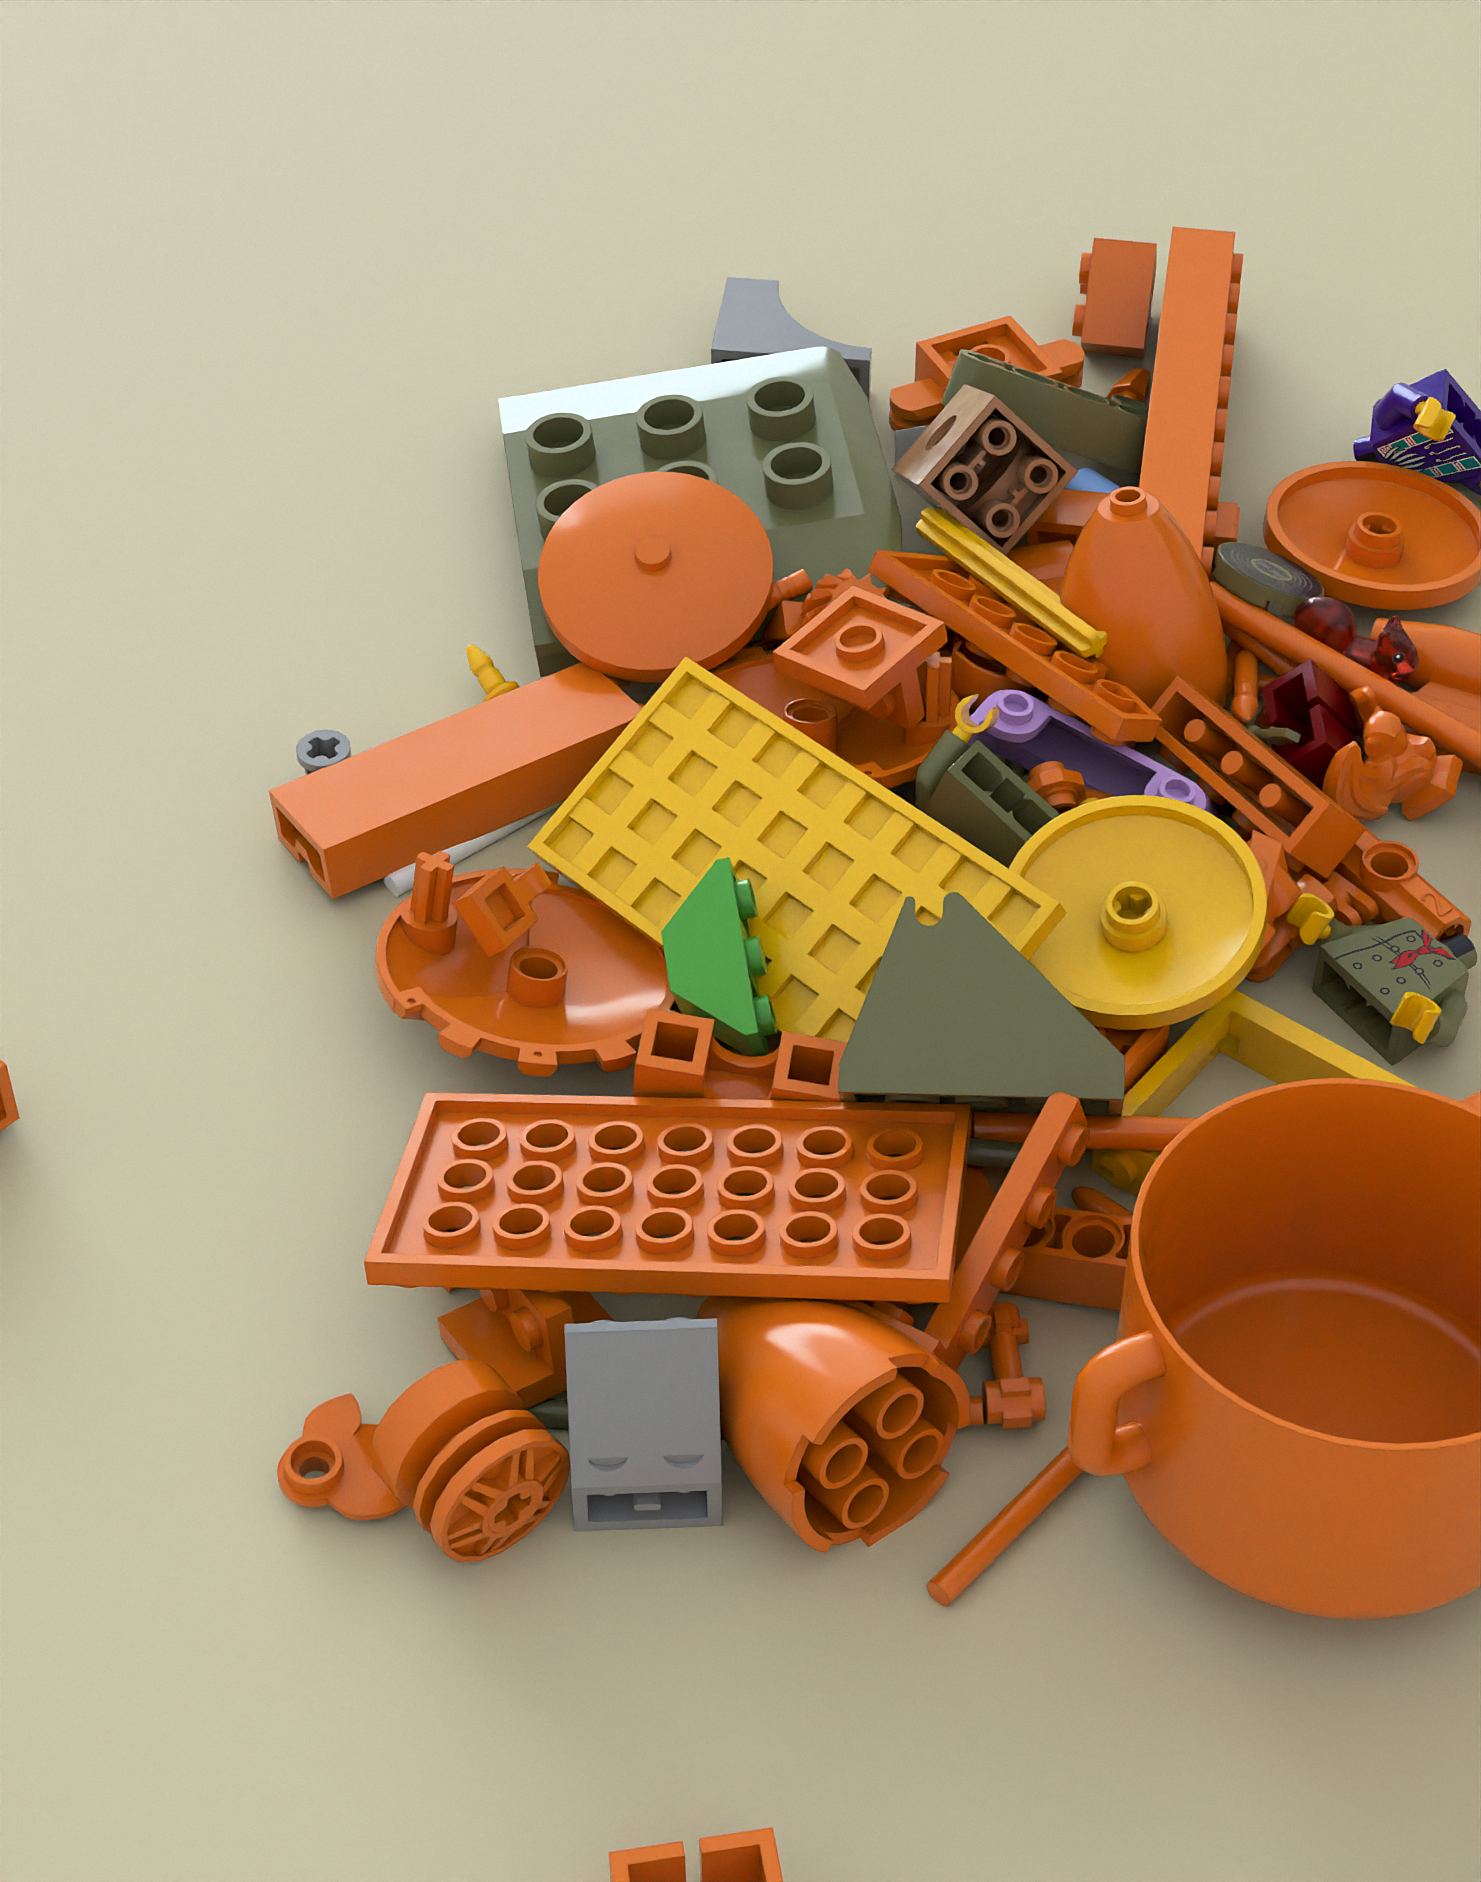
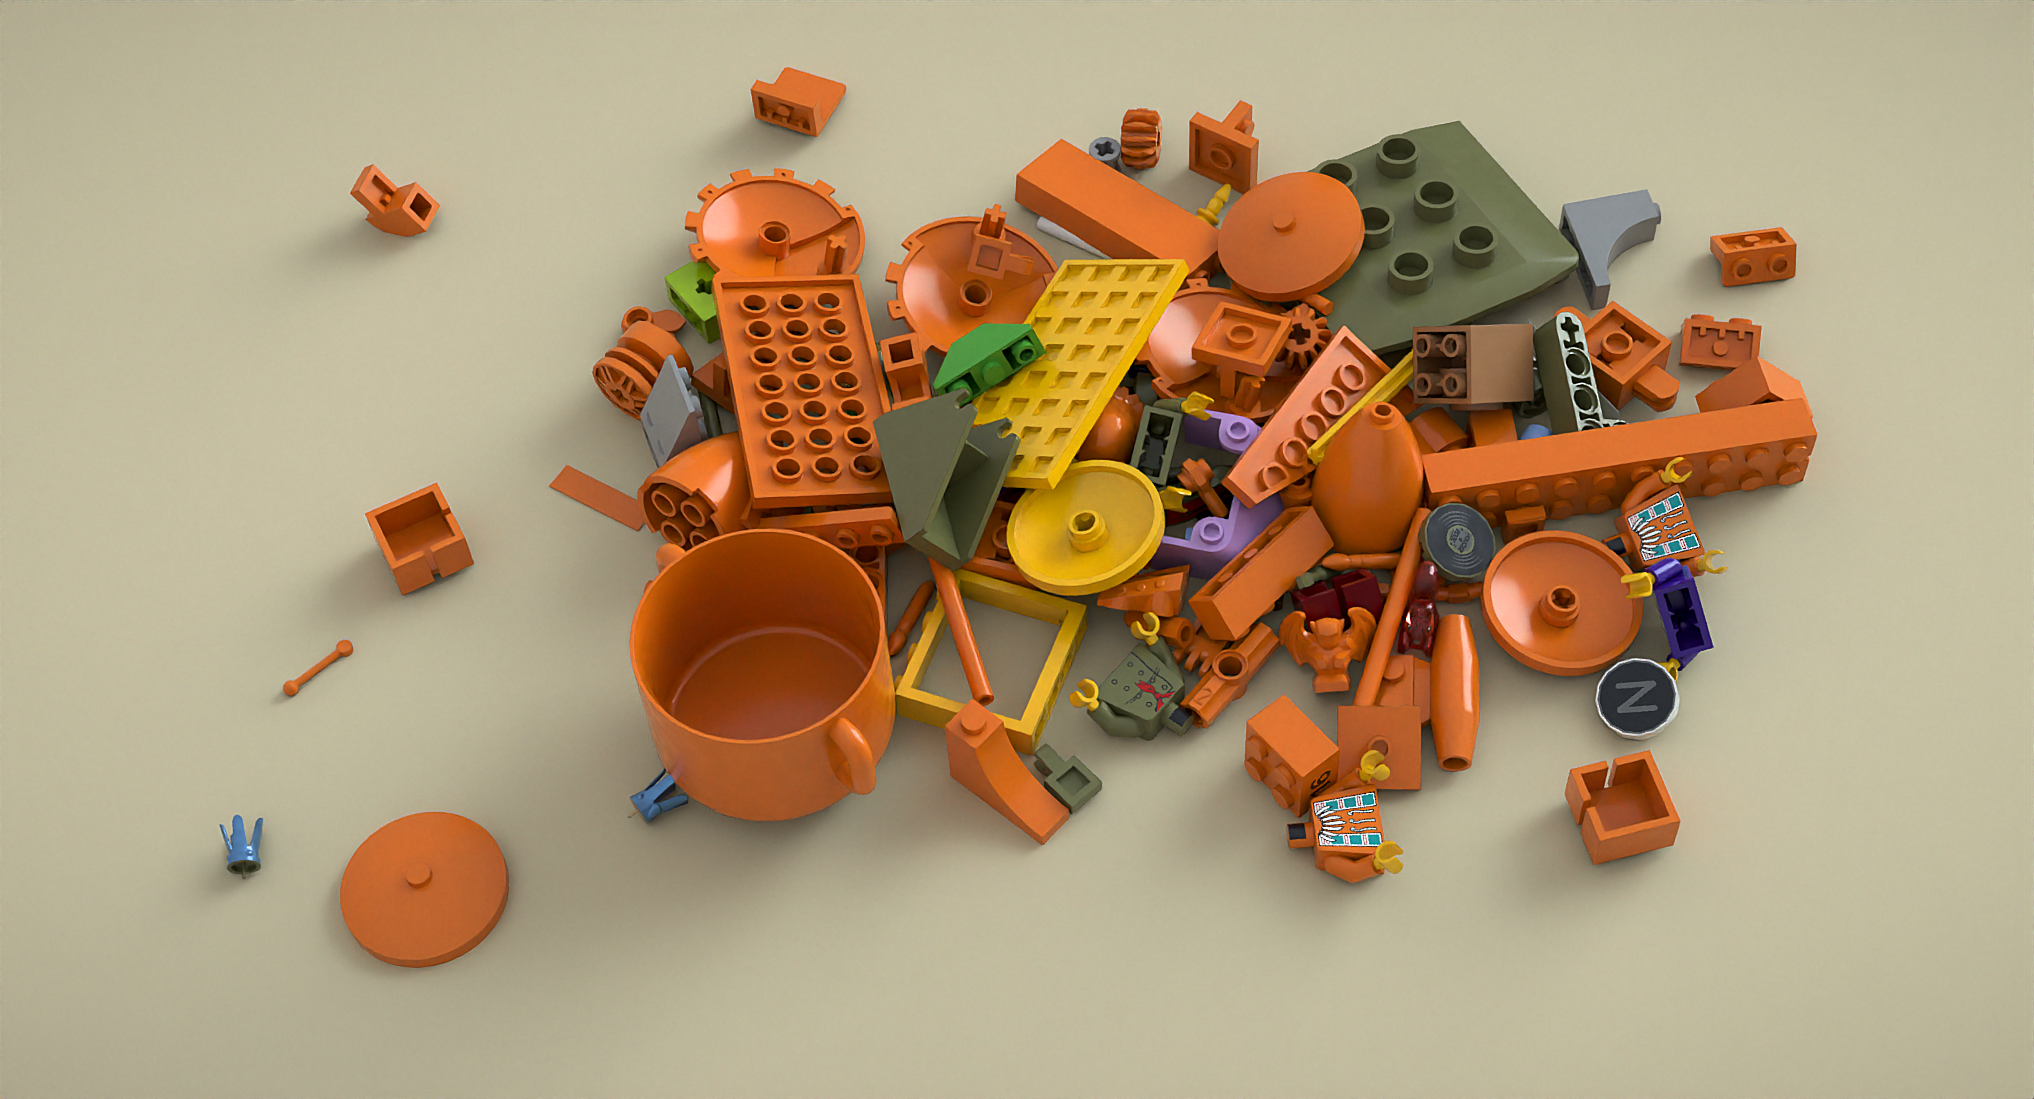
camera: 75 degrees right, 10 degrees up
(246, 1197) = (775, 228): none -> orange piece
(318, 699) = (1141, 138): none -> orange gear
(320, 1350) = (692, 295): none -> lime brick
(414, 620) = (1225, 149): none -> orange bracket
(687, 1632) = (599, 497): none -> orange sticker
(863, 239) = (1755, 256): none -> orange bracket
(997, 294) = (1718, 343): none -> orange bracket
(1290, 420) = (1659, 526): none -> torso
(1443, 1687) = (648, 801): none -> flat silver piece

